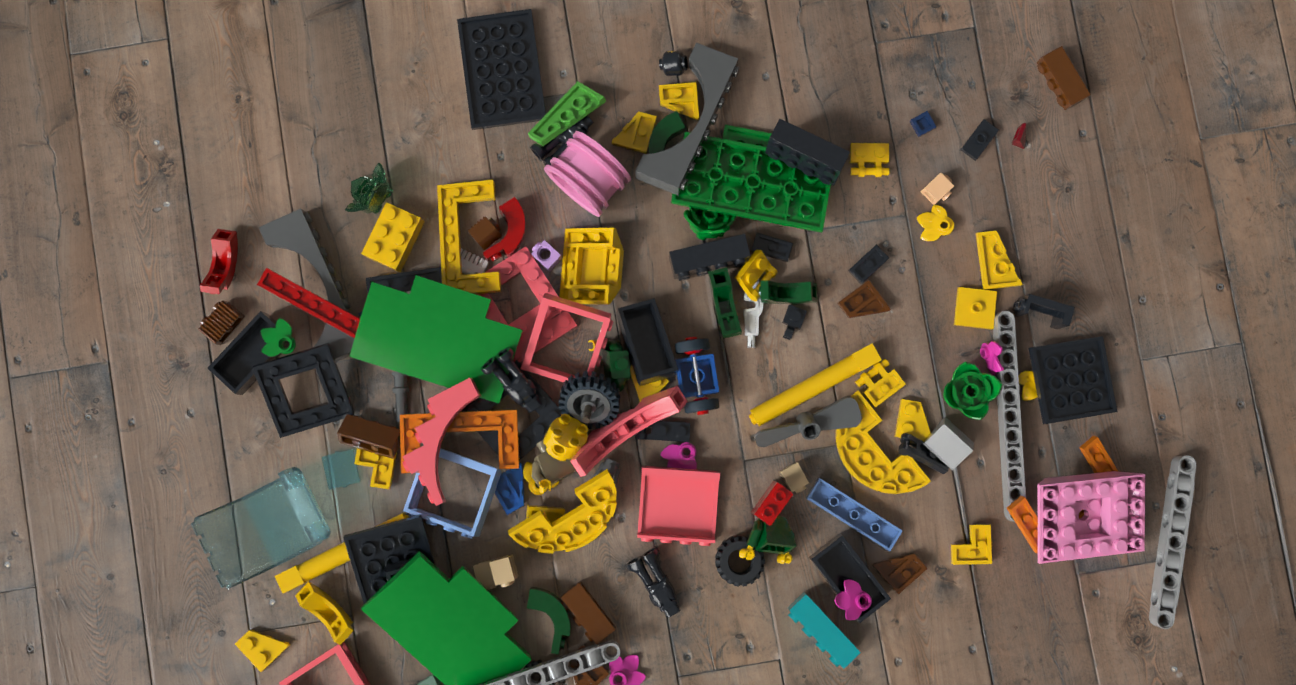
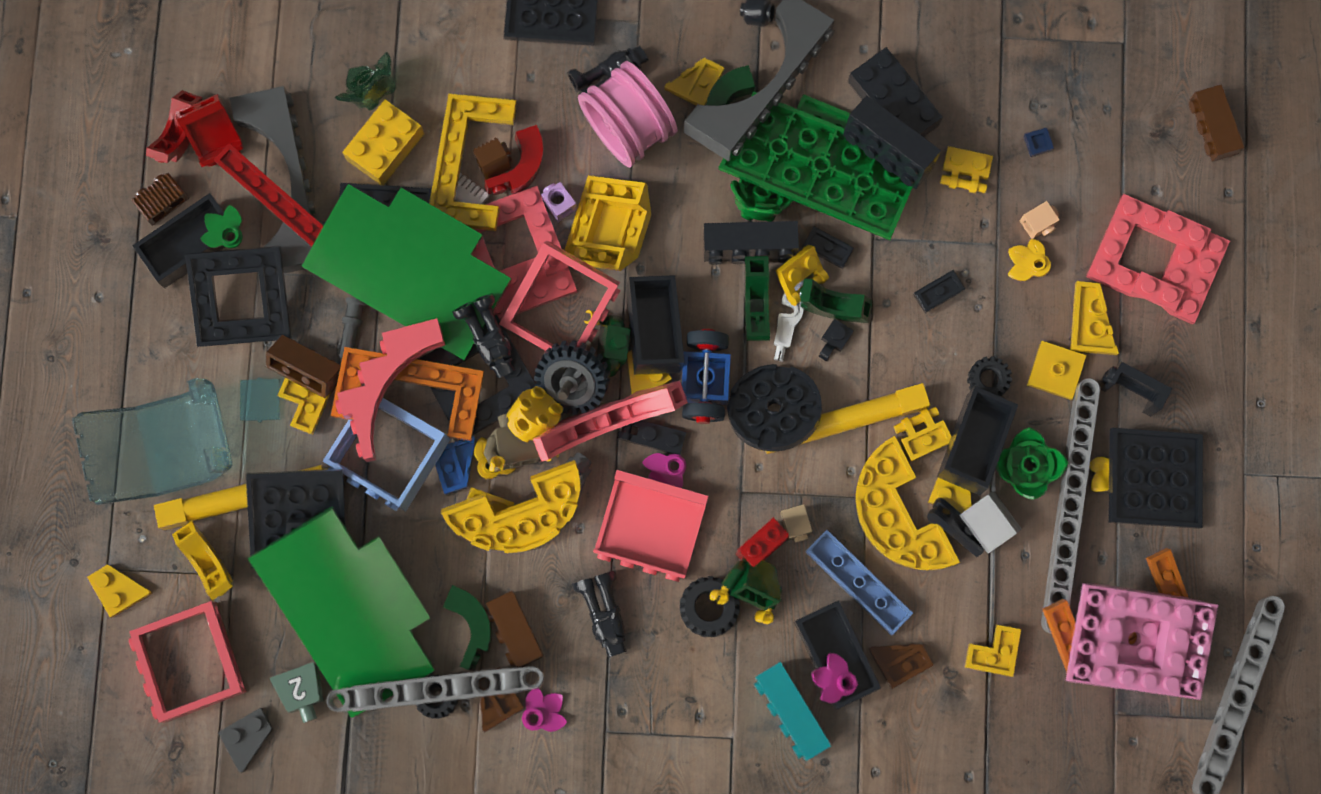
camera: 10 degrees right, 5 degrees down
(248, 257) = (208, 129): none -> red panel
(497, 572) = (418, 556): tan brick -> none
(566, 112) = (619, 41): bright green wing -> none
(680, 98) = (757, 52): yellow wing -> none
(763, 407) = (772, 429): none -> black plate
(797, 106) = (893, 88): none -> black piece
(838, 415) = (866, 459): dark grey piece -> none
(863, 302) = (923, 334): reddish brown wing -> none
(915, 335) = (990, 364): none -> black tyre
(926, 381) = (977, 440): none -> black piece
(979, 139) = (1102, 174): black plate -> none
(989, 352) = (1062, 425): dark pink plate -> none
(1020, 136) = (1151, 181): dark red slope -> none
(1064, 202) = (1188, 270): none -> coral piece

